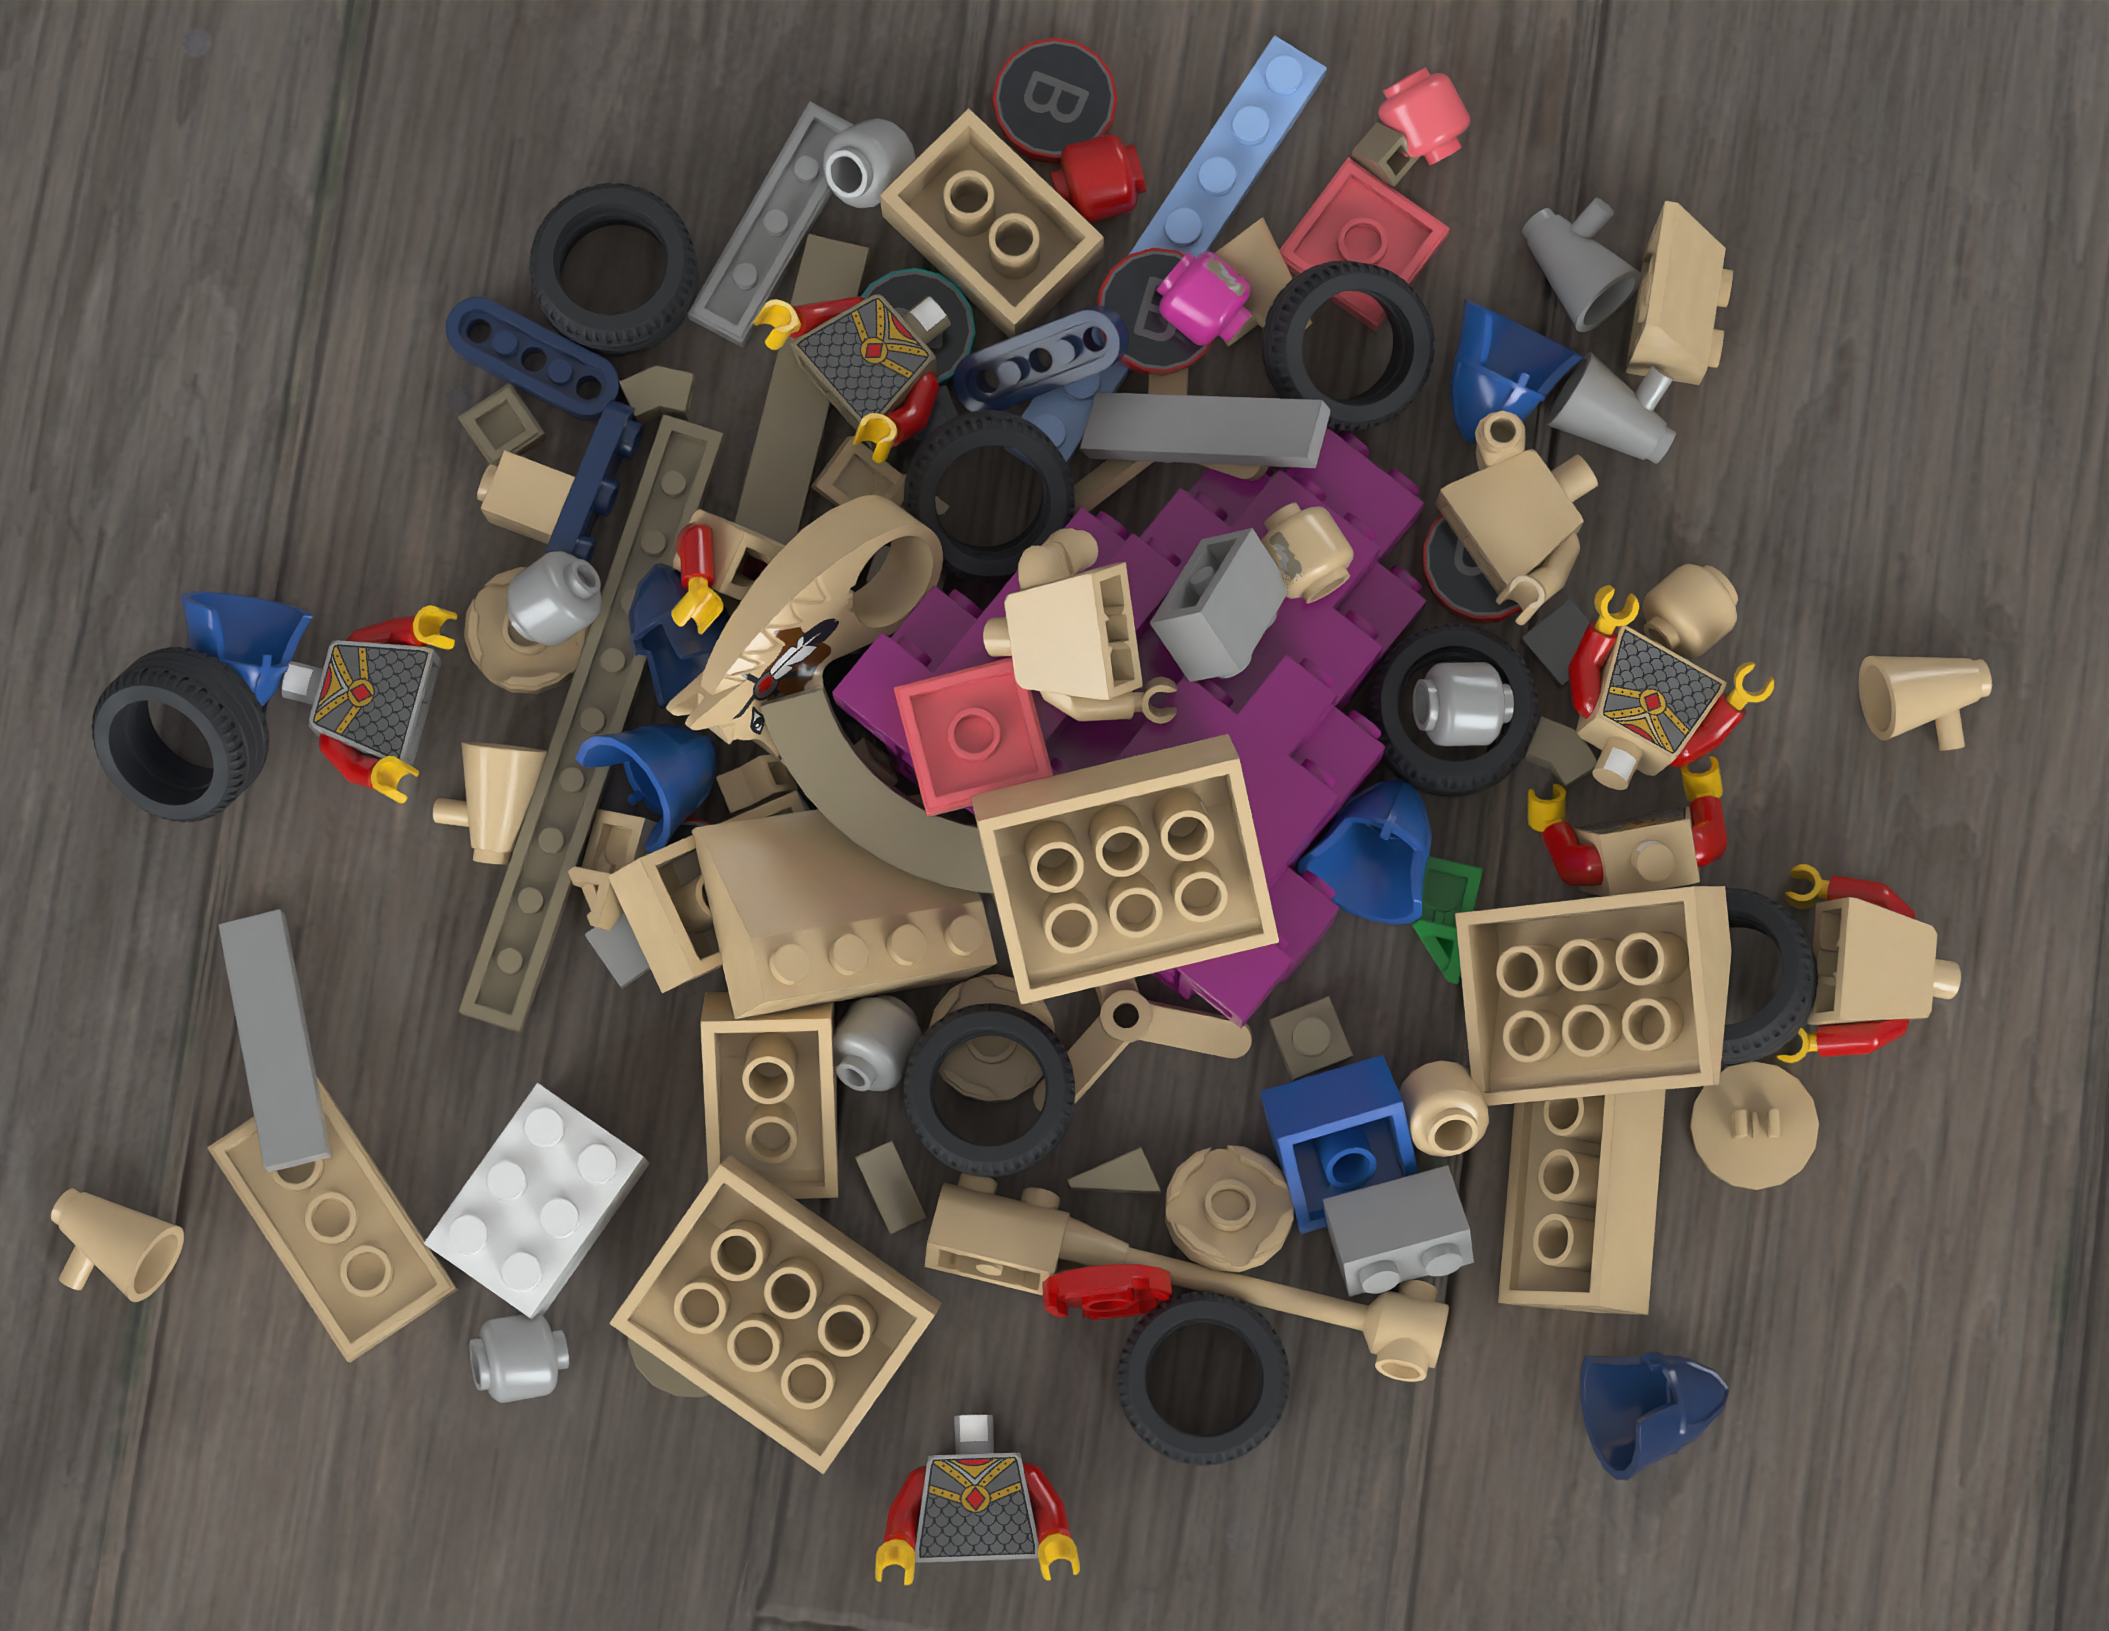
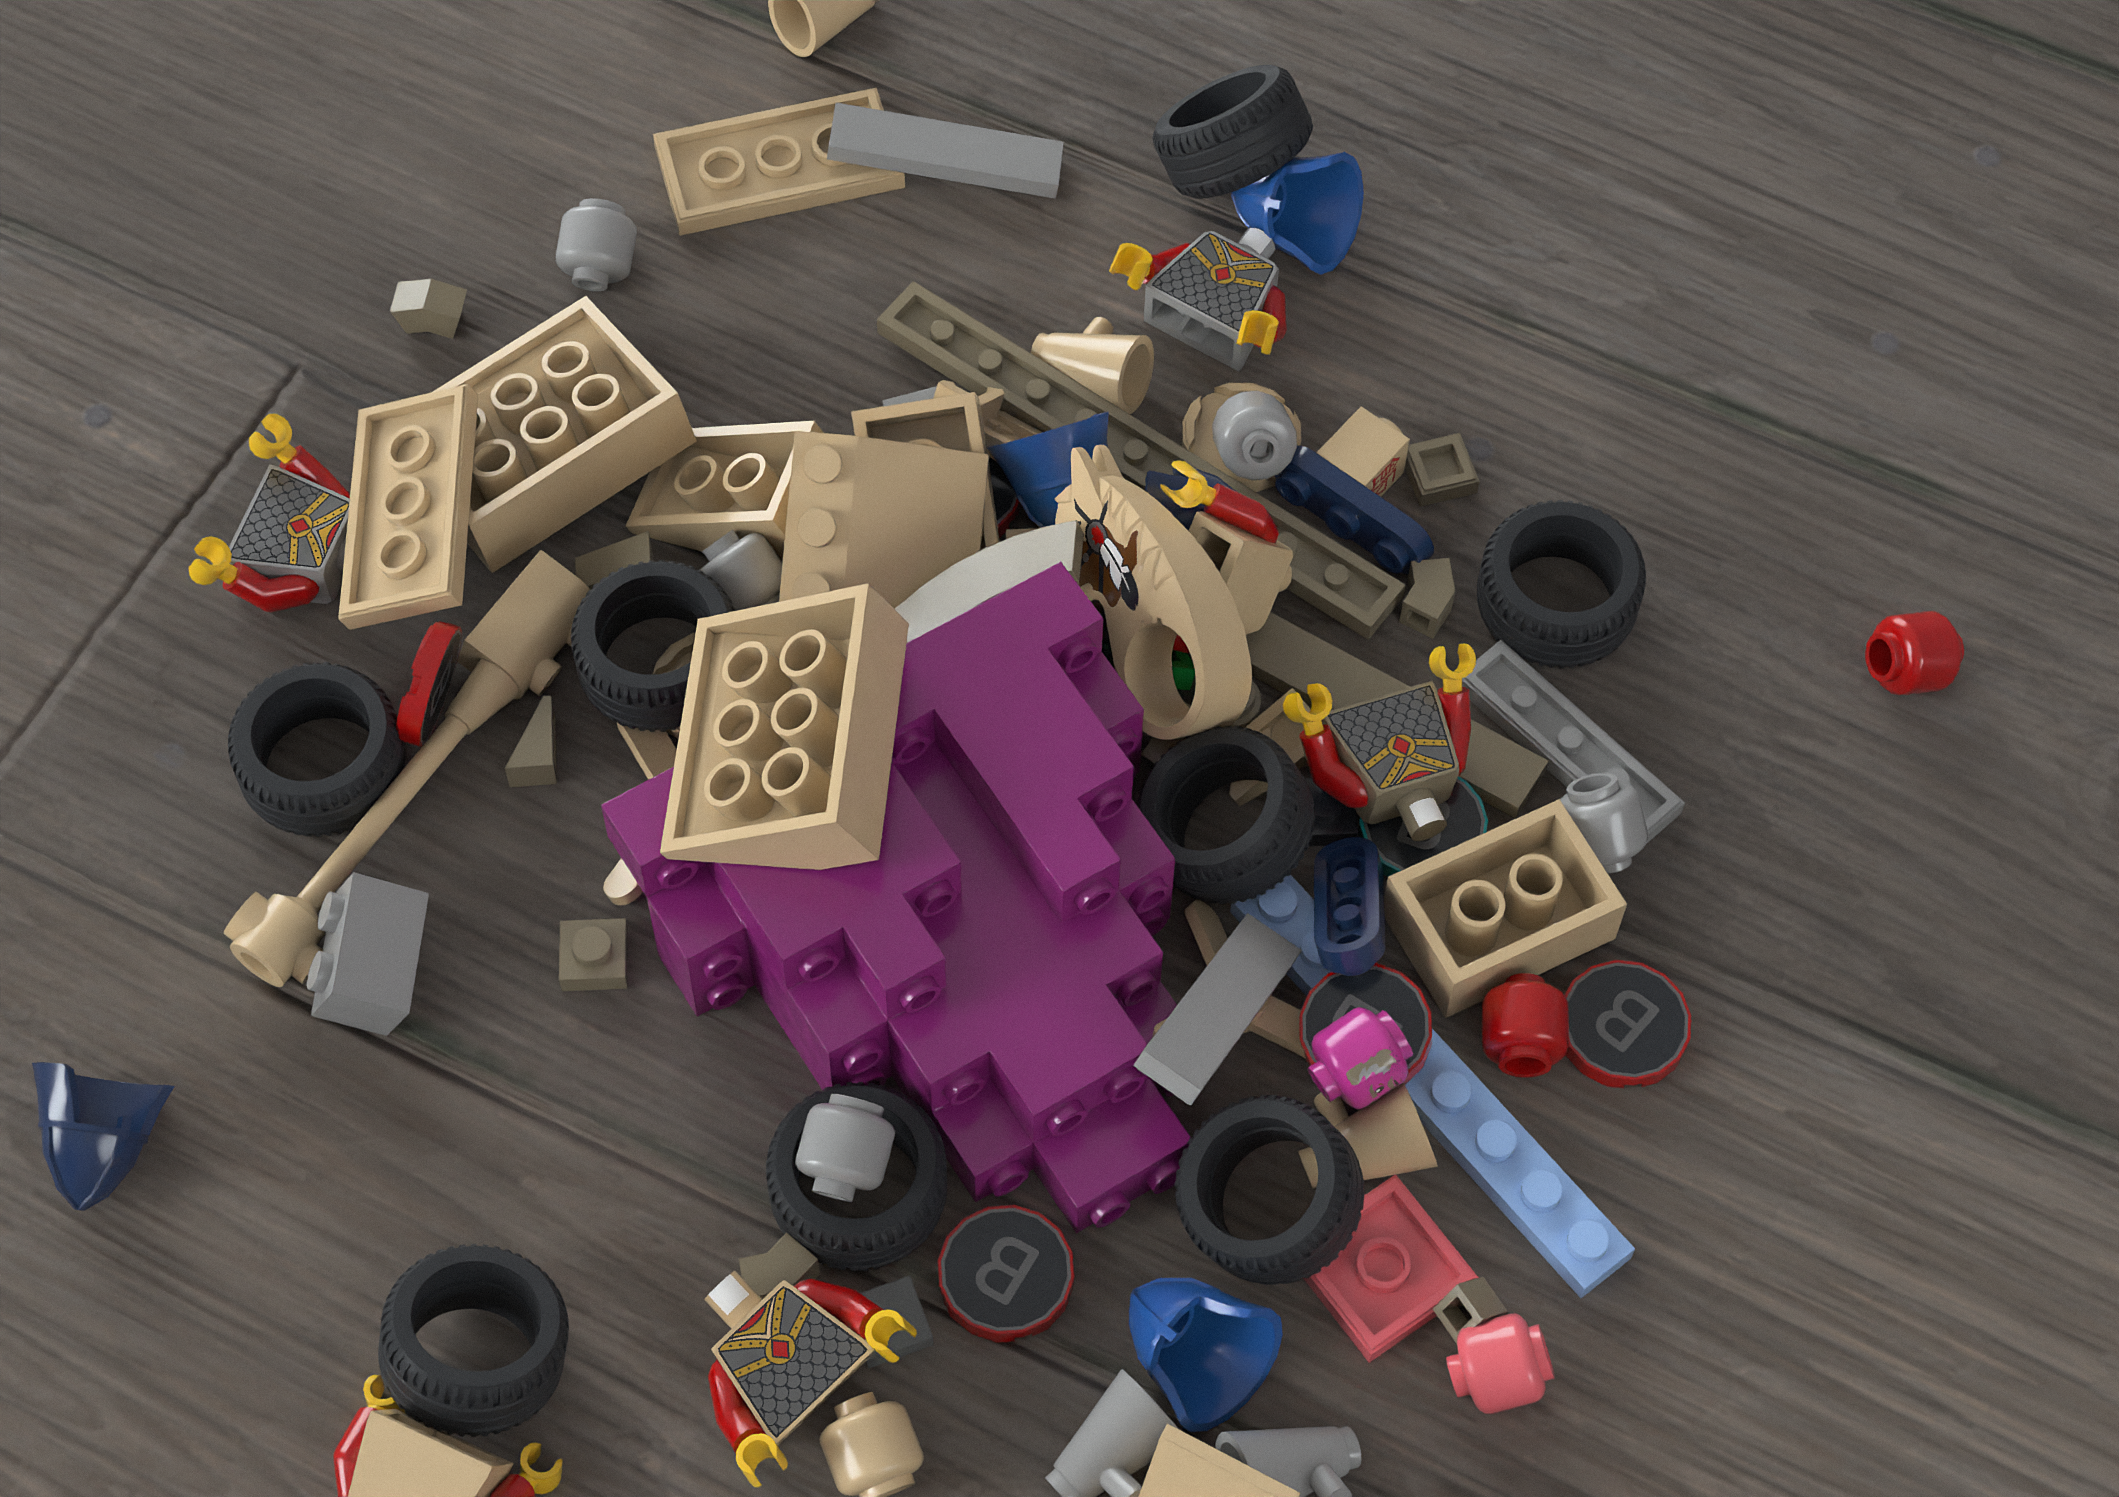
camera: 105 degrees right, 20 degrees down
(516, 338) = (1500, 486): dark blue plate -> none
(537, 1202) = (721, 292): white brick -> none
(649, 1500) = (428, 306): none -> dark tan piece
(925, 1390) = (409, 507): none -> tan tile
(971, 734) = (970, 657): coral tile -> none
(1075, 633) = (1028, 744): tan torso -> none
(1220, 606) = (1014, 910): light grey brick -> none
(1228, 1208) = (463, 824): tan tile -> none
(1308, 551) = (1049, 1027): tan head -> none
(1338, 1135) = (485, 937): blue slope -> none
(1376, 854) = (748, 1057): blue helmet -> none
(1444, 1108) = (466, 1031): tan head -> none
(1446, 891) = (664, 1113): green slope -> none
(1518, 514) = (1028, 1294): tan torso -> none
(1583, 1203) = (340, 1147): tan slope -> none
(1596, 994) = (504, 1183): tan slope -> none
(1639, 850) = (638, 1302): torso -> none
(1754, 1126) = (321, 1339): tan piece -> none

